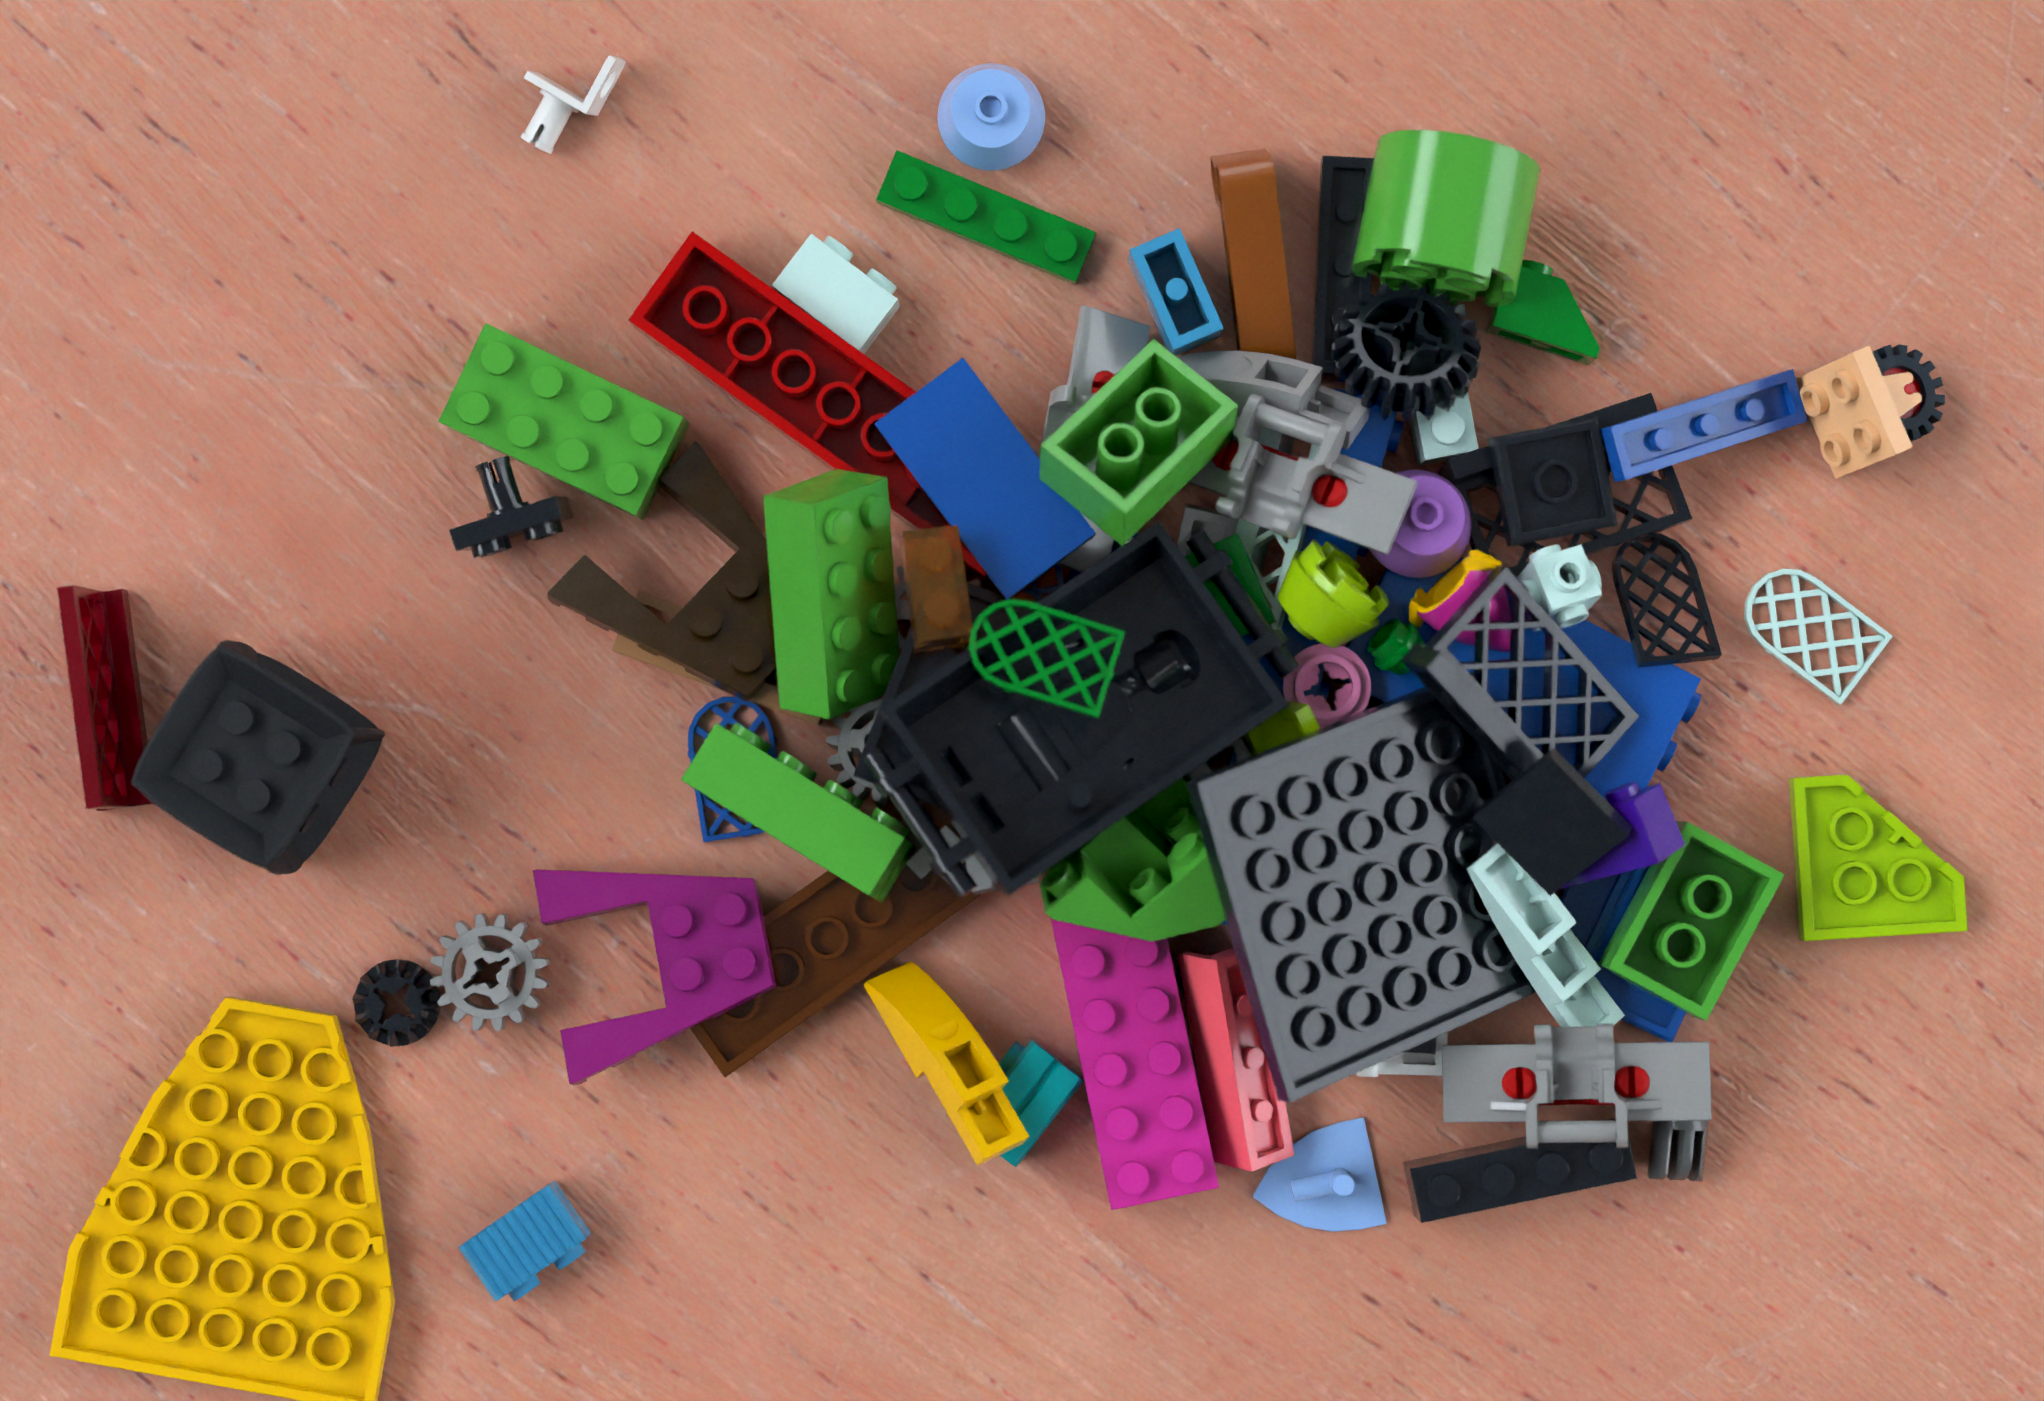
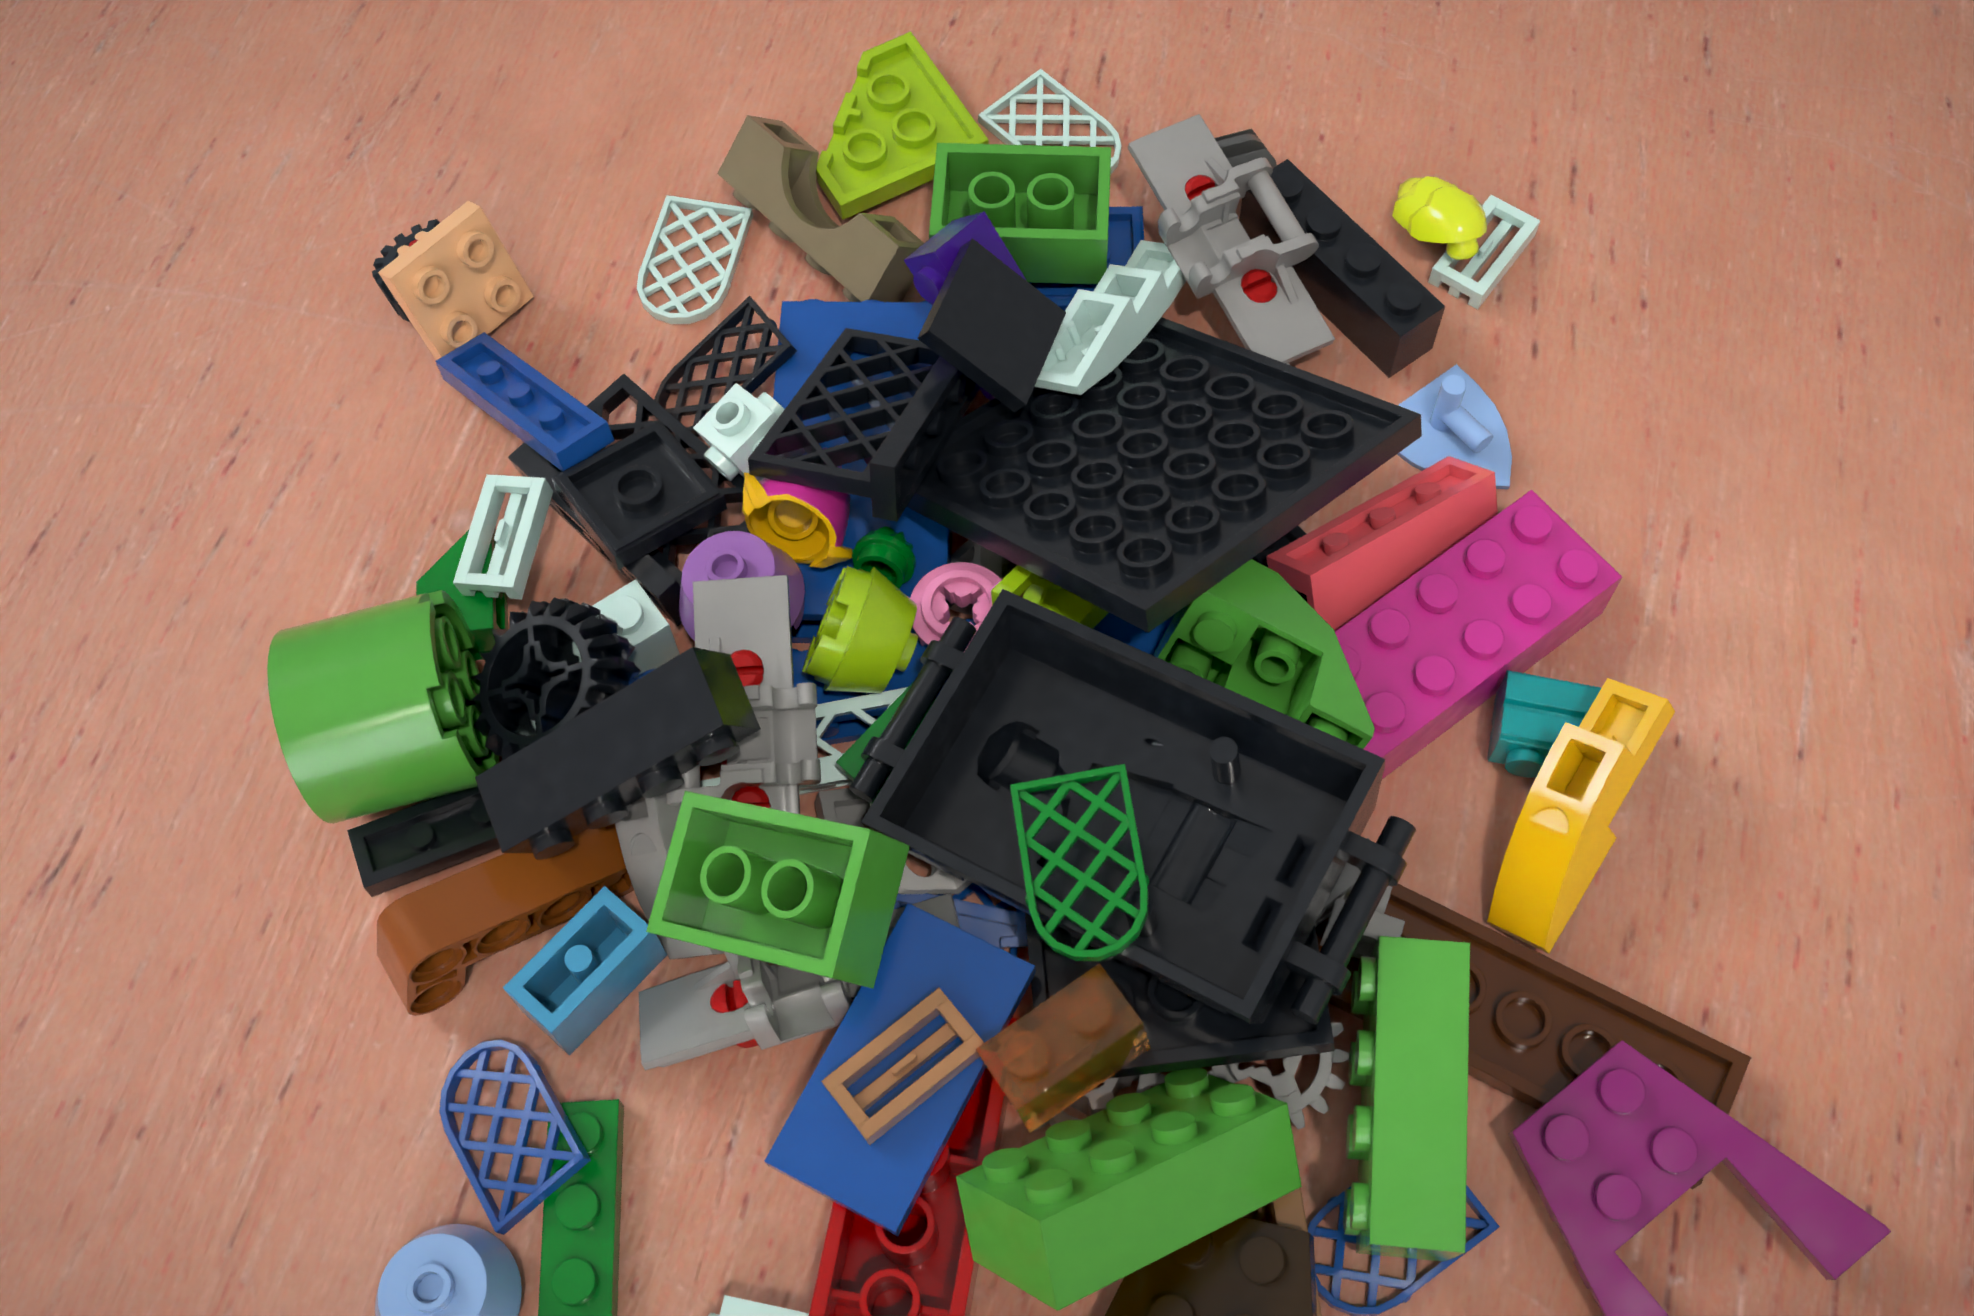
camera: 115 degrees left, 25 degrees down
(988, 523) = (887, 1042): none -> medium nougat tile
(1028, 170) = (505, 1218): none -> blue window
(1296, 371) = (617, 753): none -> black brick
(1462, 1271) = (1463, 281): none -> light aqua tile
(1531, 1289) = (1441, 214): none -> neon yellow arm
(1556, 379) = (515, 536): none -> light aqua tile
(1798, 1054) = (990, 117): none -> light aqua window
(1848, 734) = (777, 176): none -> dark tan arch

